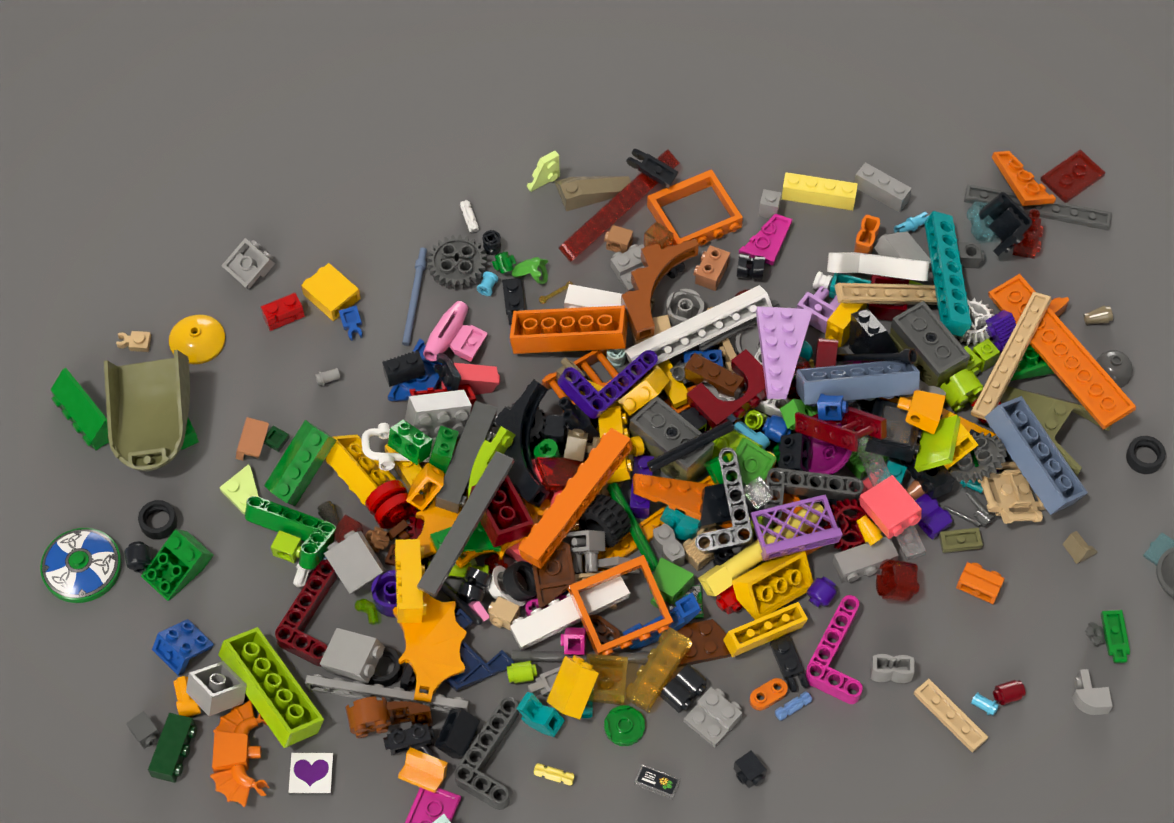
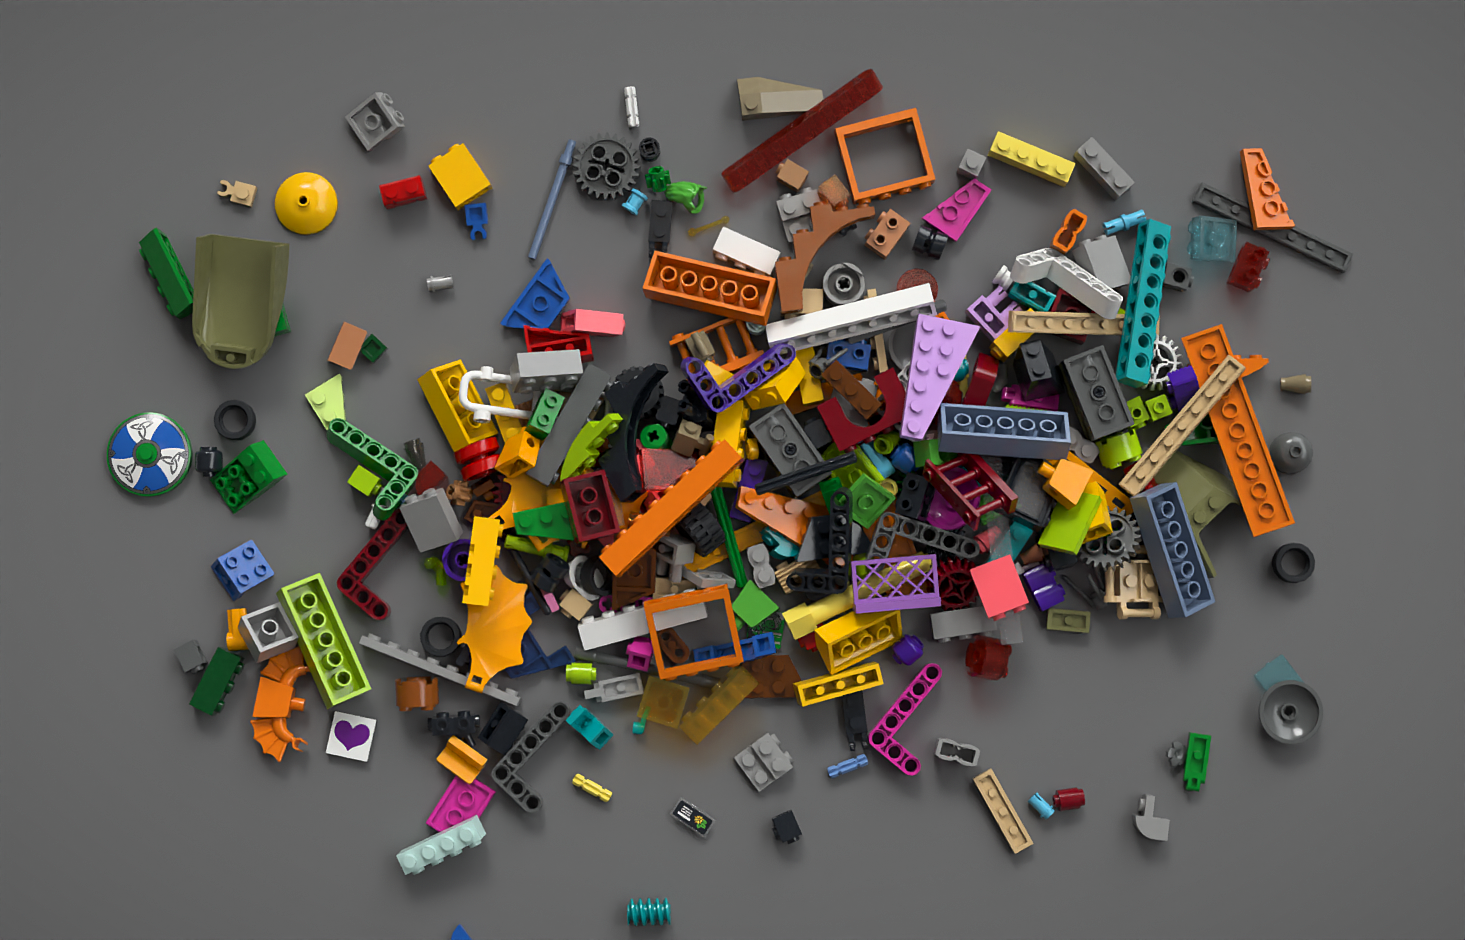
camera: 10 degrees right, 25 degrees up
(300, 463) = (391, 390): green slope -> none
(352, 655) = (411, 625): light grey brick -> none
(403, 368) = (521, 298): black brick -> none
(409, 711) = (463, 701): reddish brown slope -> none
(410, 442) = (510, 400): green brick -> none
(447, 372) = (567, 317): black hinge -> none
(451, 333) = (585, 263): bright pink plate -> none
(465, 524) = (548, 522): dark grey tile -> none
(546, 171) = (727, 69): yellowish green wing -> none
(572, 686) = (626, 710): yellow brick -> none
(624, 725) = (673, 750): green tile -> none
(652, 168) = (849, 98): black hinge -> none
(684, 688) = (740, 726): black brick -> none
(758, 492) = (864, 542): clear brick -> none
(769, 694) = (826, 748): orange plate -> none
(831, 407) = (965, 465): blue brick -> none
(869, 530) = (972, 600): yellow cone -> none
(907, 356) = (1063, 416): black piece -> none
(980, 582) = (1074, 673): orange brick -> none
(1008, 221) = (1229, 257): black piece -> none
(1072, 176) = (1324, 195): clear red tile -> none
(1078, 548) = (1187, 656): dark tan tile -> none

